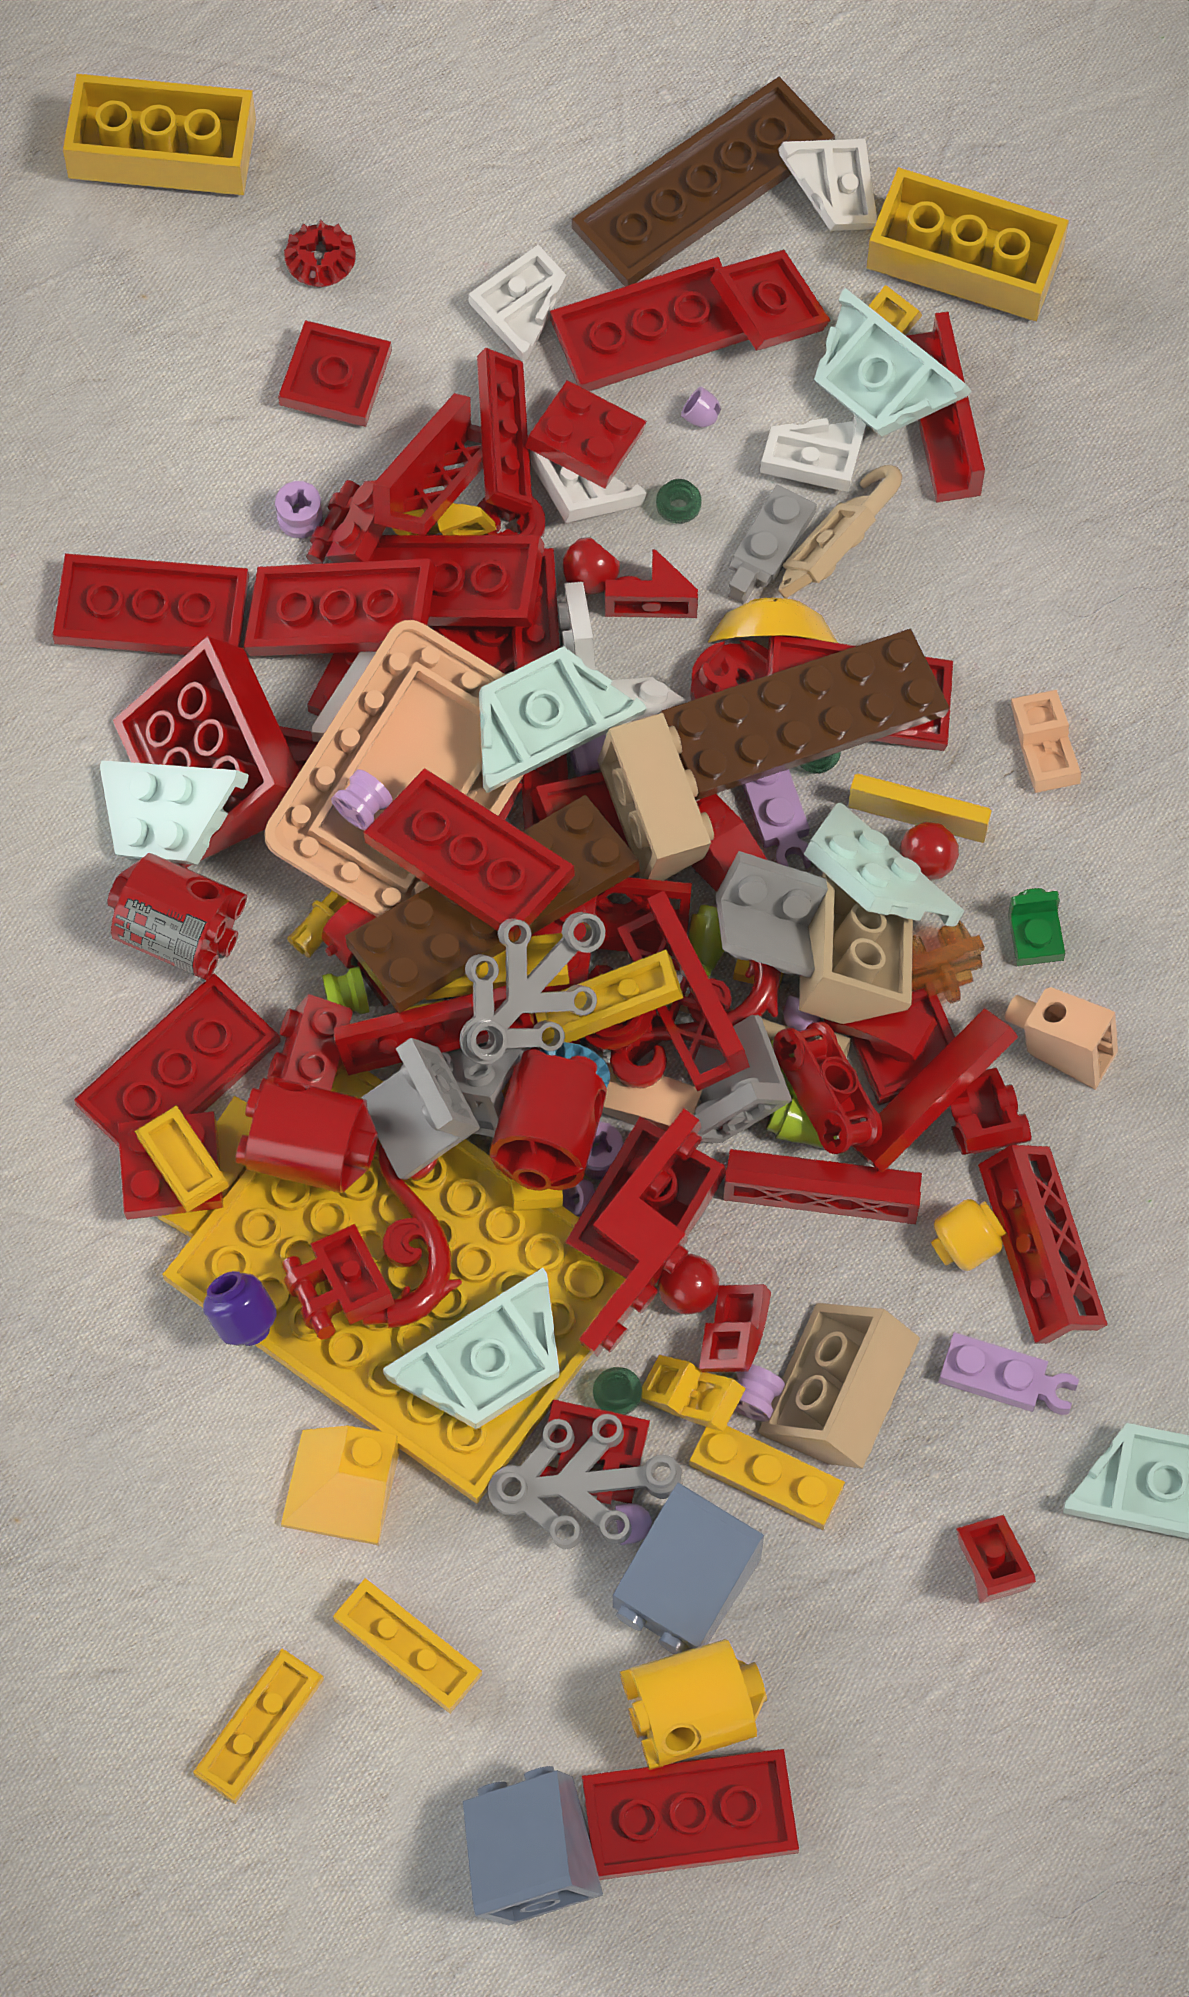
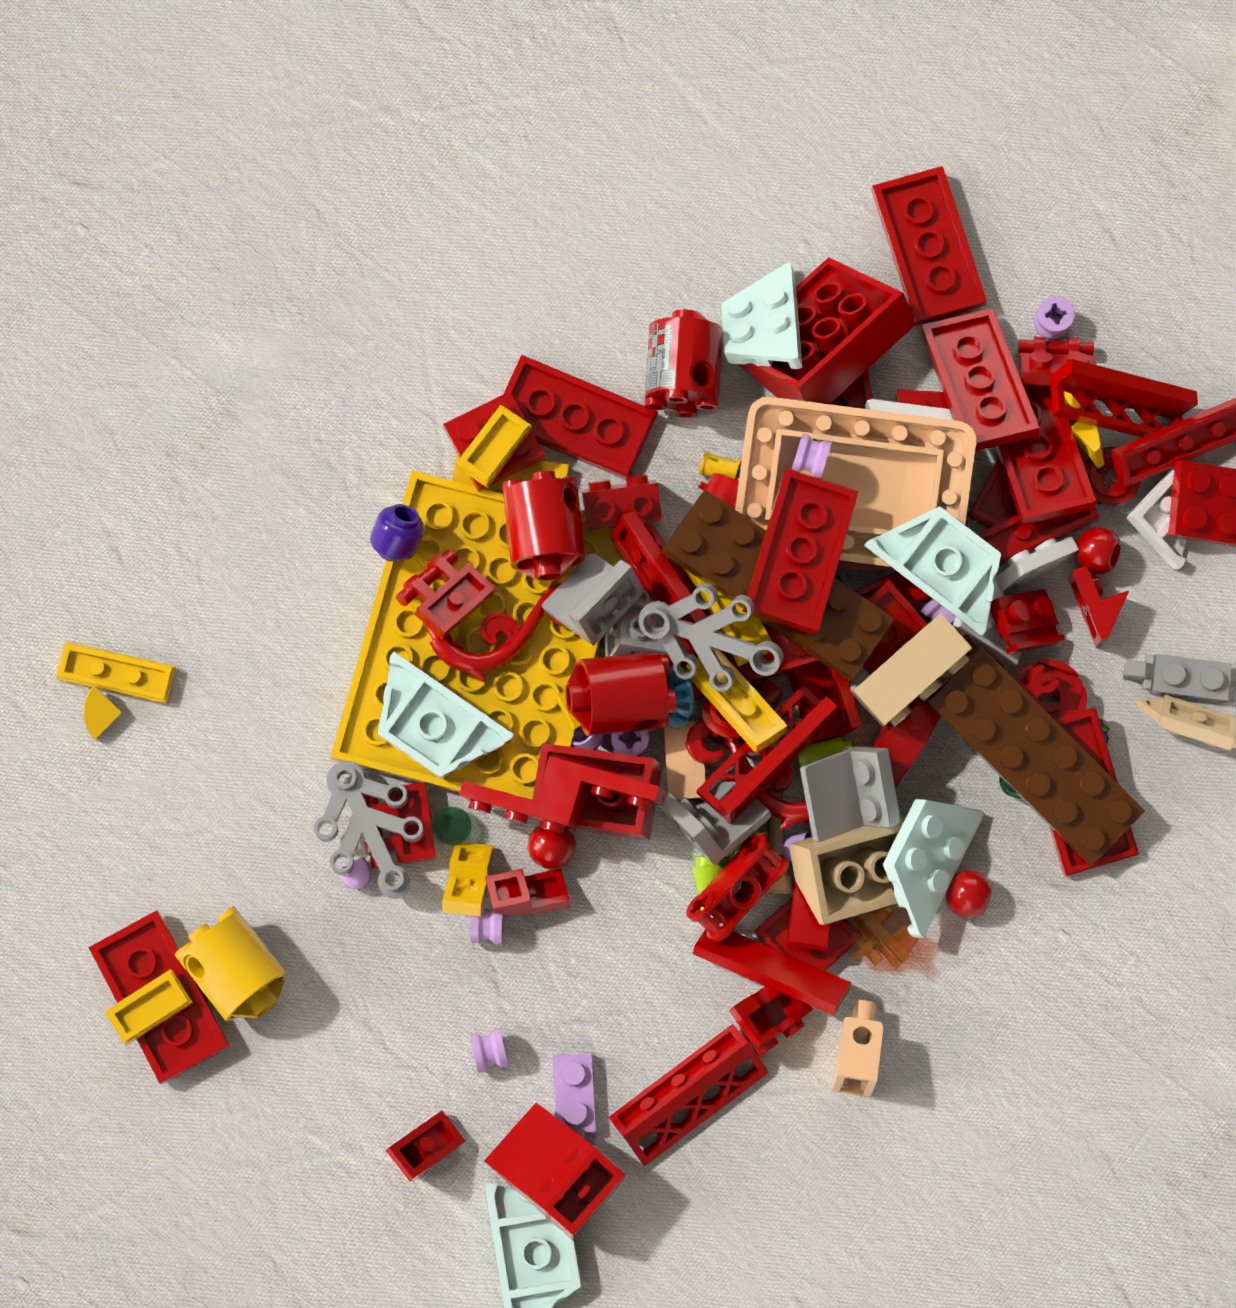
camera: 70 degrees right, 10 degrees up
(301, 1762) = (98, 712): none -> yellow tile
(335, 373) = (1180, 298): red plate -> none
(342, 1483) = (308, 659): yellow slope -> none
(347, 990) = (675, 507): lime wheel -> none
(407, 1645) = (207, 751): yellow plate -> none
(528, 1848) = (85, 891): sand blue slope -> none
(641, 668) = (1026, 621): none -> red plate
(678, 490) = (1189, 585): clear green plate -> none
(687, 1571) = (328, 927): sand blue slope -> none
(701, 1826) = (148, 1007): none -> yellow tile
(767, 1474) = (432, 959): yellow plate -> none
(773, 618) = (1112, 714): yellow piece -> none
(779, 815) = (952, 772): lavender plate -> none
(822, 1186) = (668, 914): red fence -> none
(841, 1383) = (517, 984): tan slope -> none
(907, 1445) = (489, 1050): none -> lavender wheel
(918, 806) = (1002, 873): yellow tile -> none
(967, 1235) = (670, 1036): yellow head -> none
(1036, 927) = (941, 998): green bracket -> none
(1045, 741) = (1102, 950): light nougat slope -> none
(1082, 1412) = (555, 1170): none -> red slope

